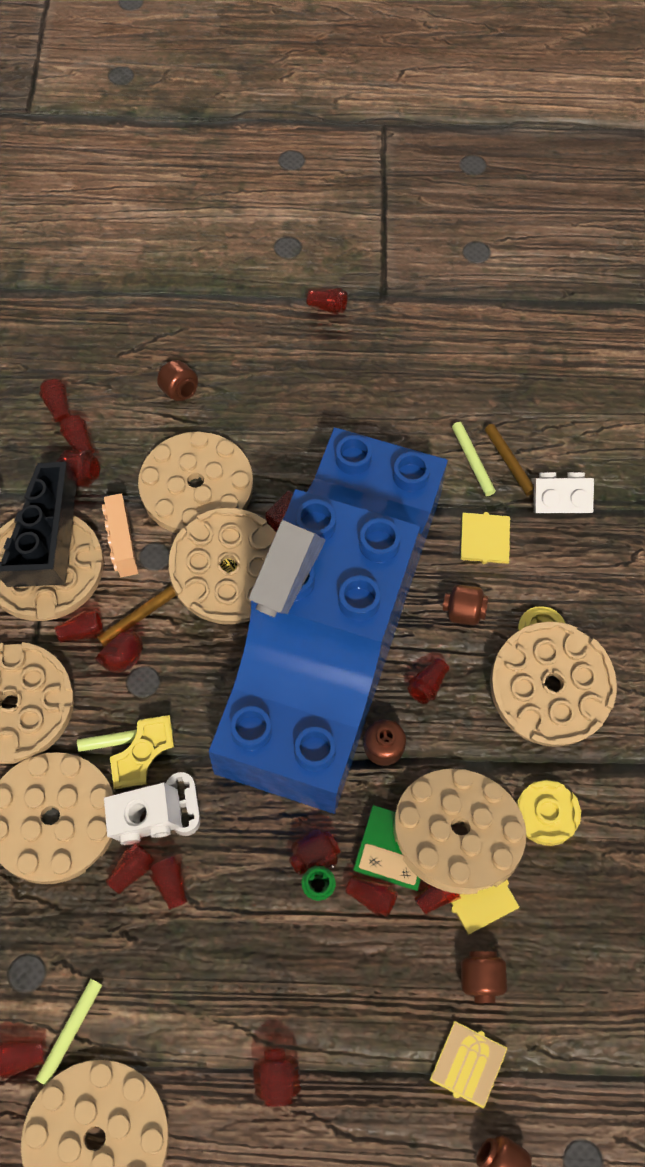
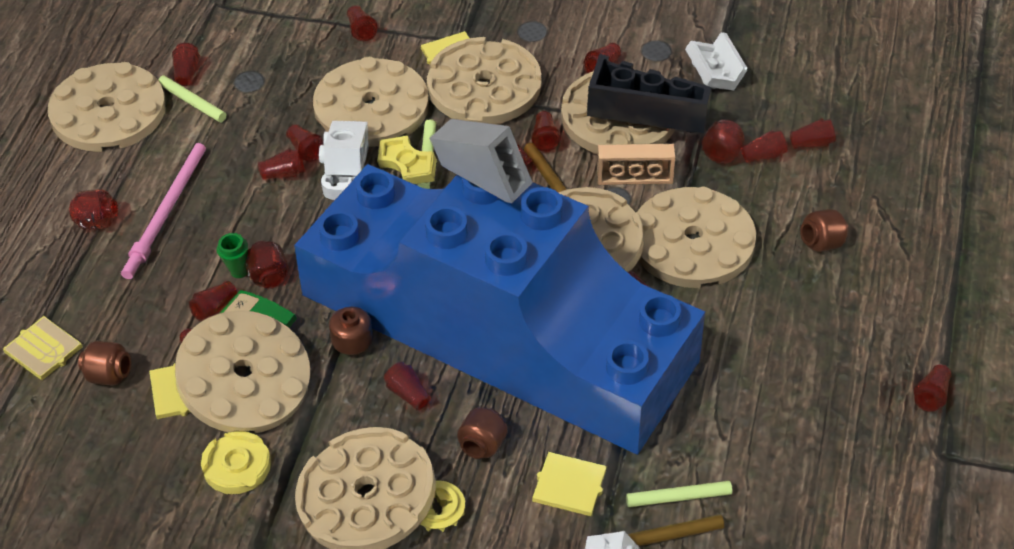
camera: 105 degrees right, 15 degrees down
(320, 1001) = (141, 249): none -> bright pink bar

